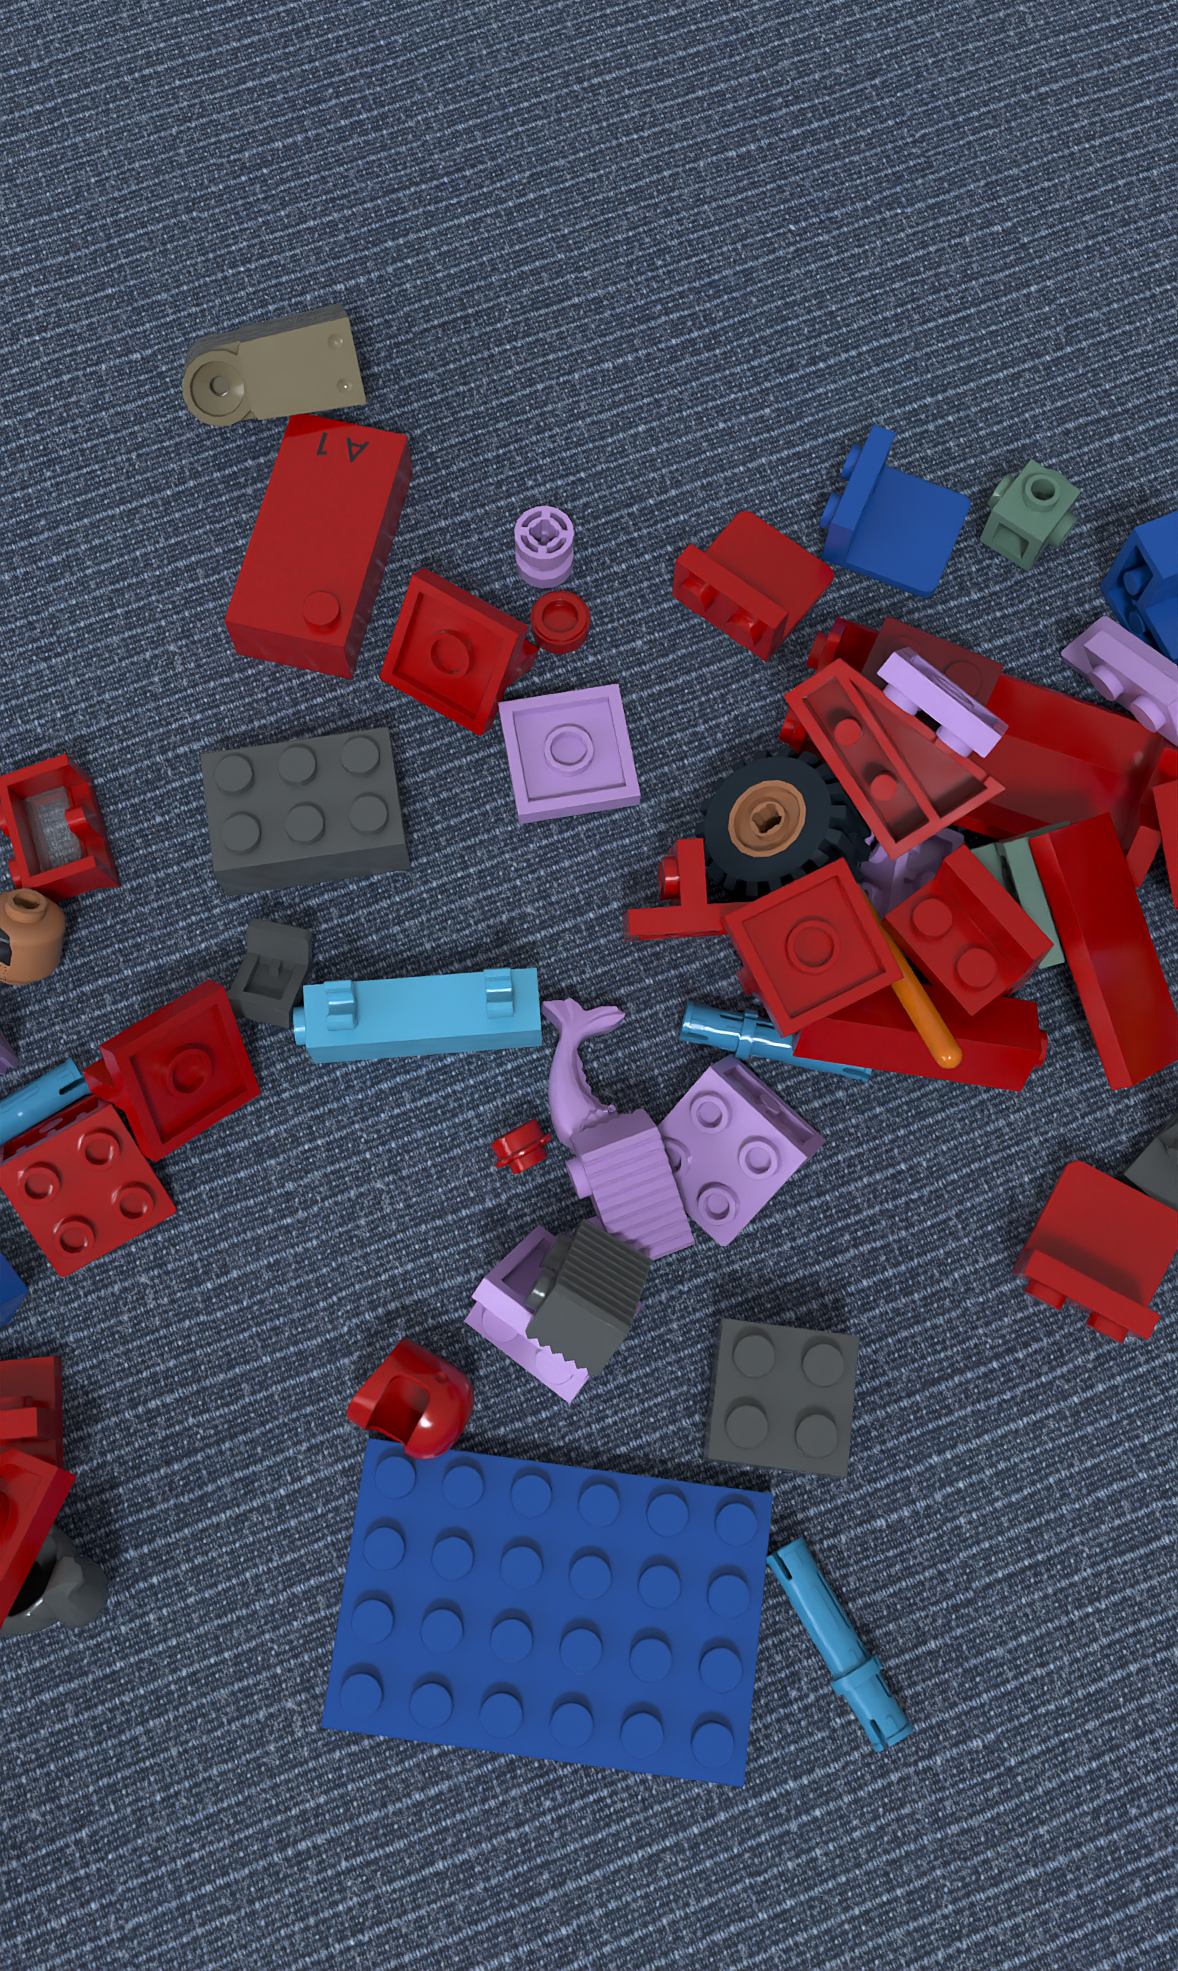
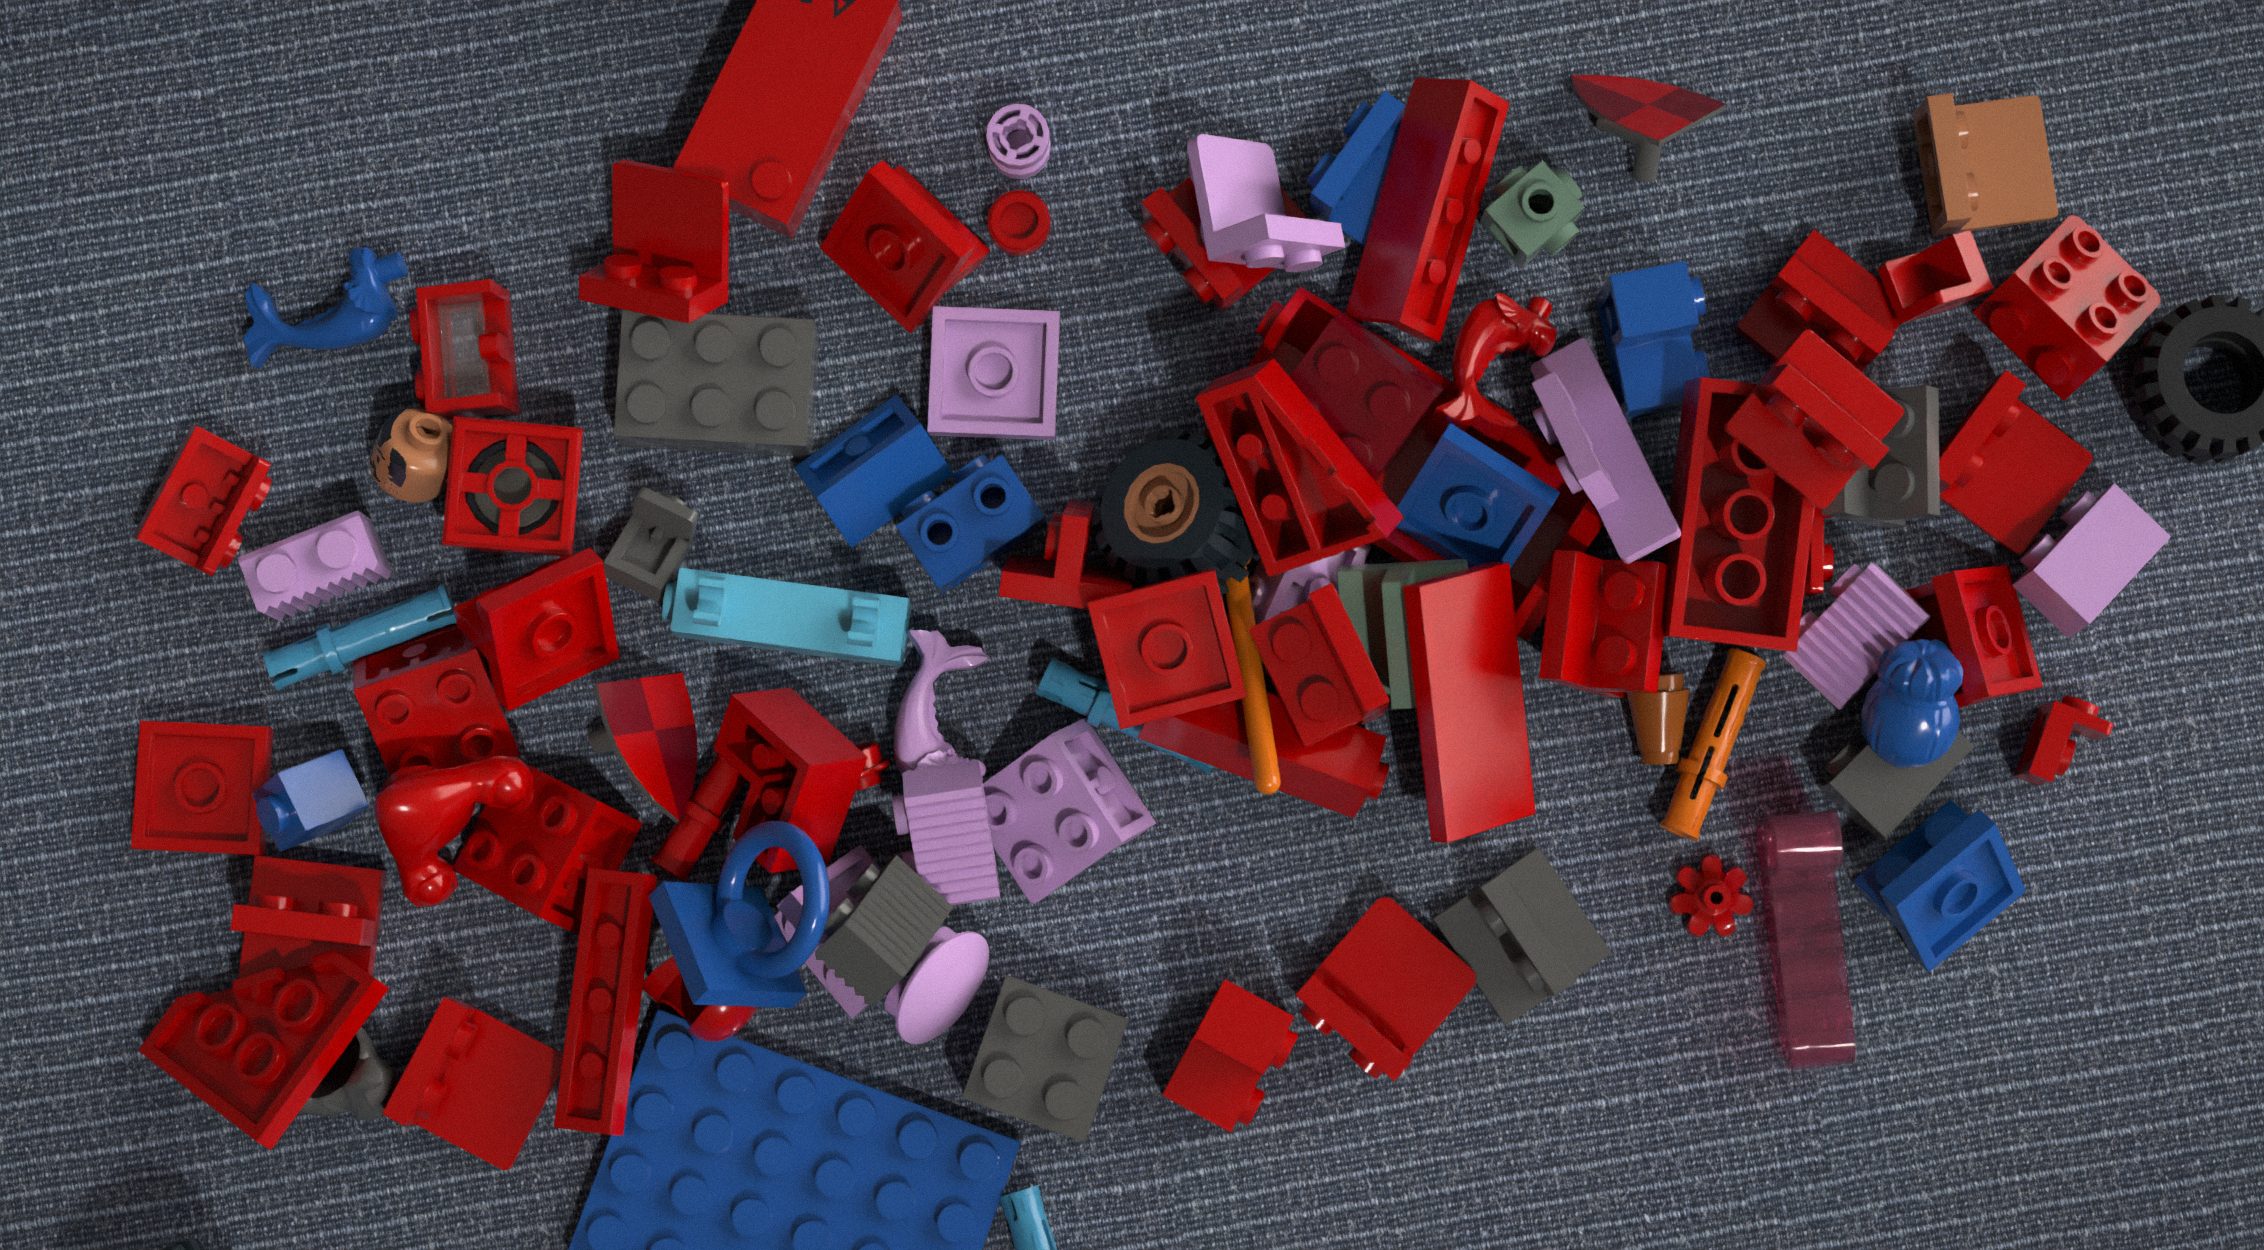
camera: 15 degrees right, 10 degrees up
(90, 1277) = (430, 806): none -> red head
(124, 946) = (512, 487): none -> red piece
(188, 1560) = (476, 1083): none -> red bracket
(222, 1294) = (543, 849): none -> red bracket
(230, 686) = (666, 244): none -> red bracket
(308, 1155) = (653, 735): none -> shield
(311, 1442) = (605, 1002): none -> red fence
(373, 1231) = (700, 819): none -> red pin
(425, 1340) = (727, 932): none -> blue tile
(466, 1166) = (795, 765): none -> red brick
(475, 864) = (874, 470): none -> blue panel
(578, 891) = (969, 522): none -> blue brick
(654, 1347) = (939, 985): none -> lavender dish
(797, 565) = (1246, 212): none -> lavender bracket
(920, 686) = (1350, 436): lavender plate -> none
(934, 523) = (1428, 206): none -> red panel
(963, 1348) = (1229, 1055): none -> red brick
(1024, 623) = (1489, 330): none -> red animal
(1059, 763) = (1473, 502): none -> blue bracket
(1108, 433) = (1643, 113): none -> shield

